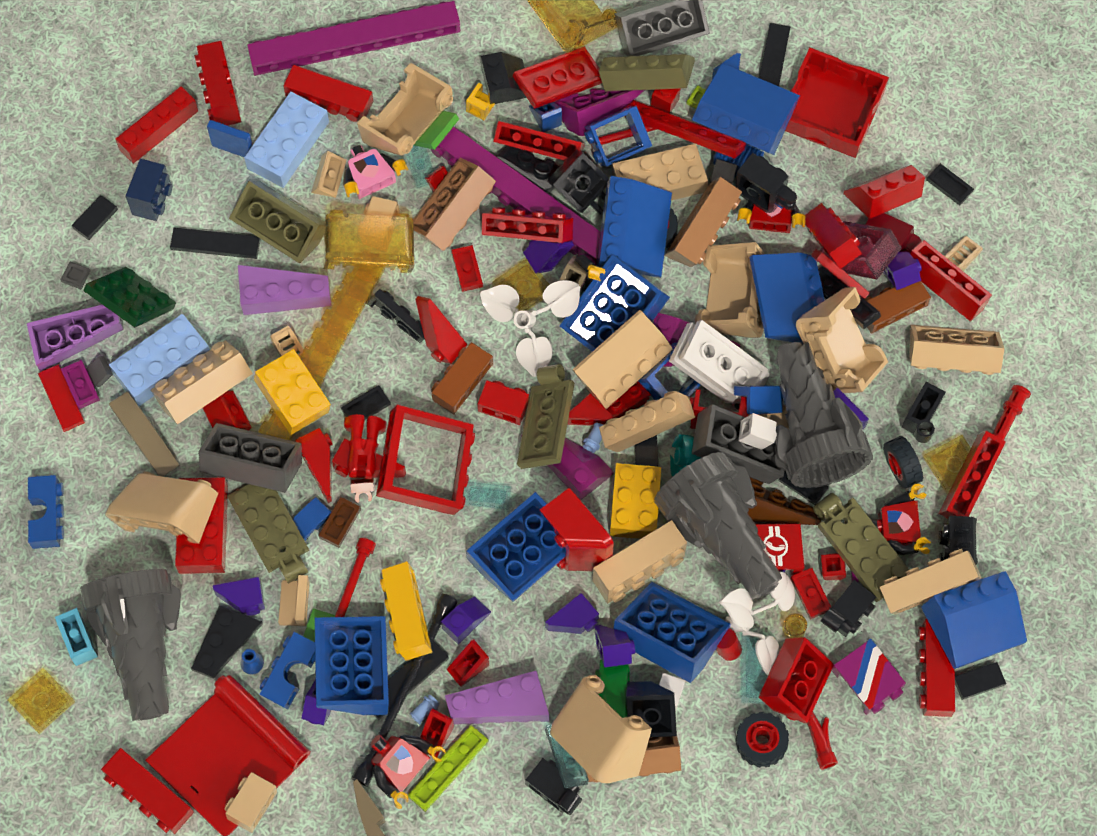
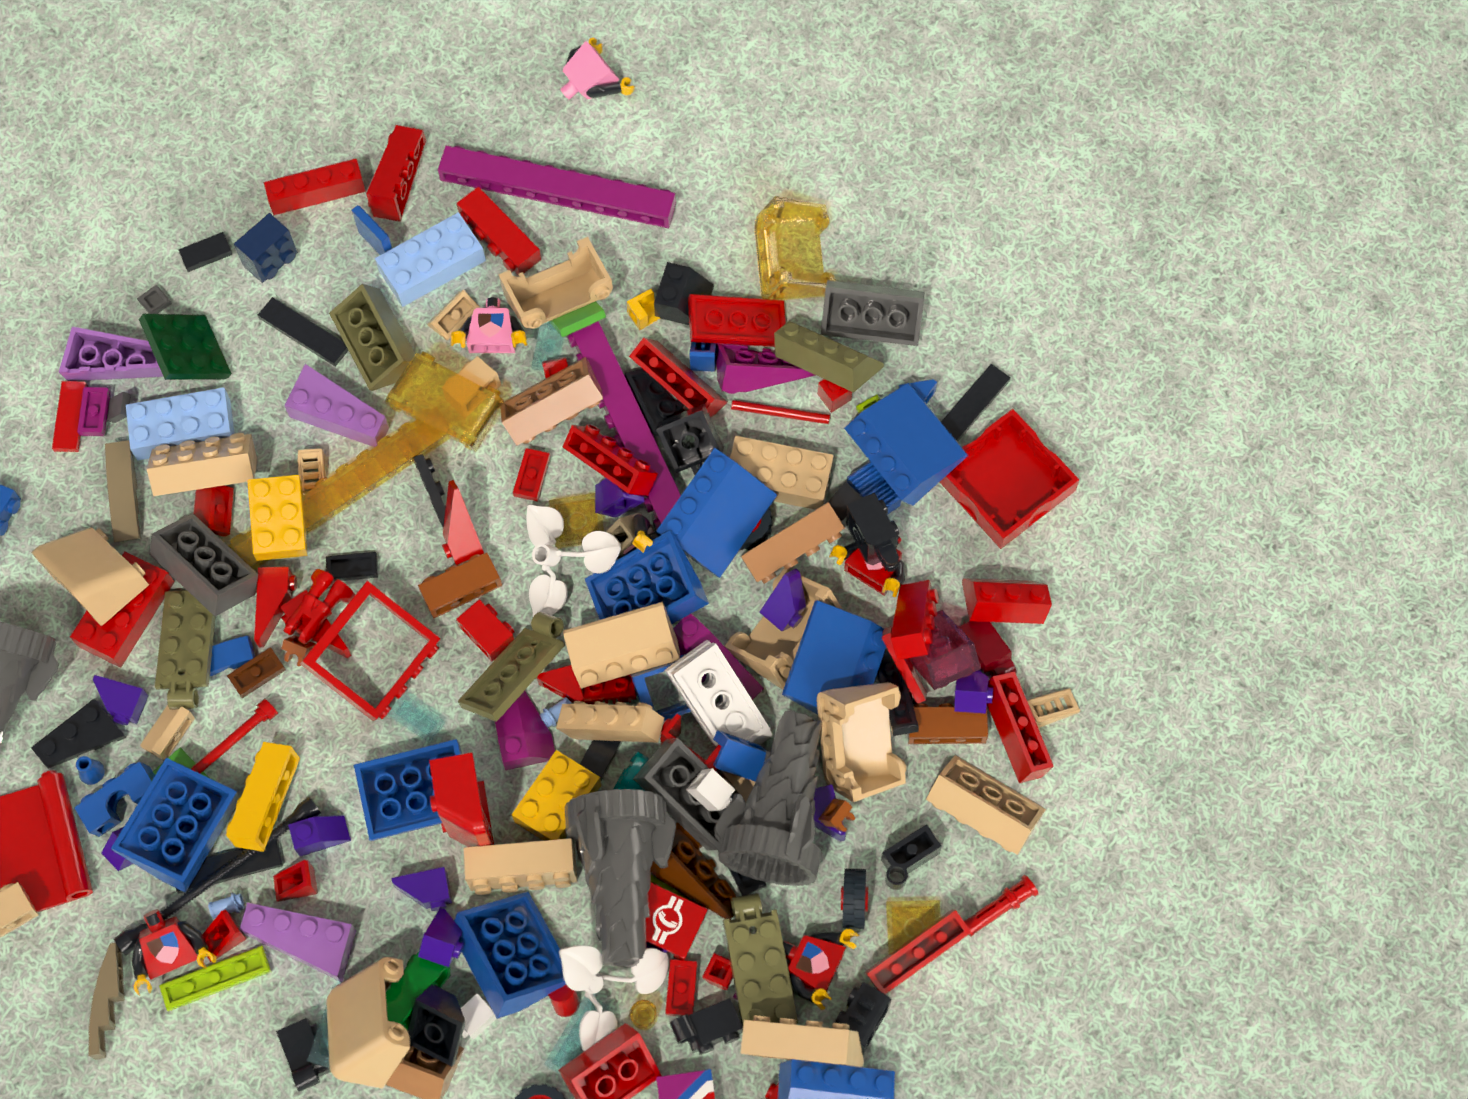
camera: 30 degrees right, 0 degrees up
(638, 131) = (784, 426): blue window -> none
(689, 131) = (831, 434): red tile -> none
(725, 270) = (786, 602): none -> dark purple slope
(857, 403) = (835, 813): none -> dark orange tile
(950, 184) = (1084, 625): black tile -> none

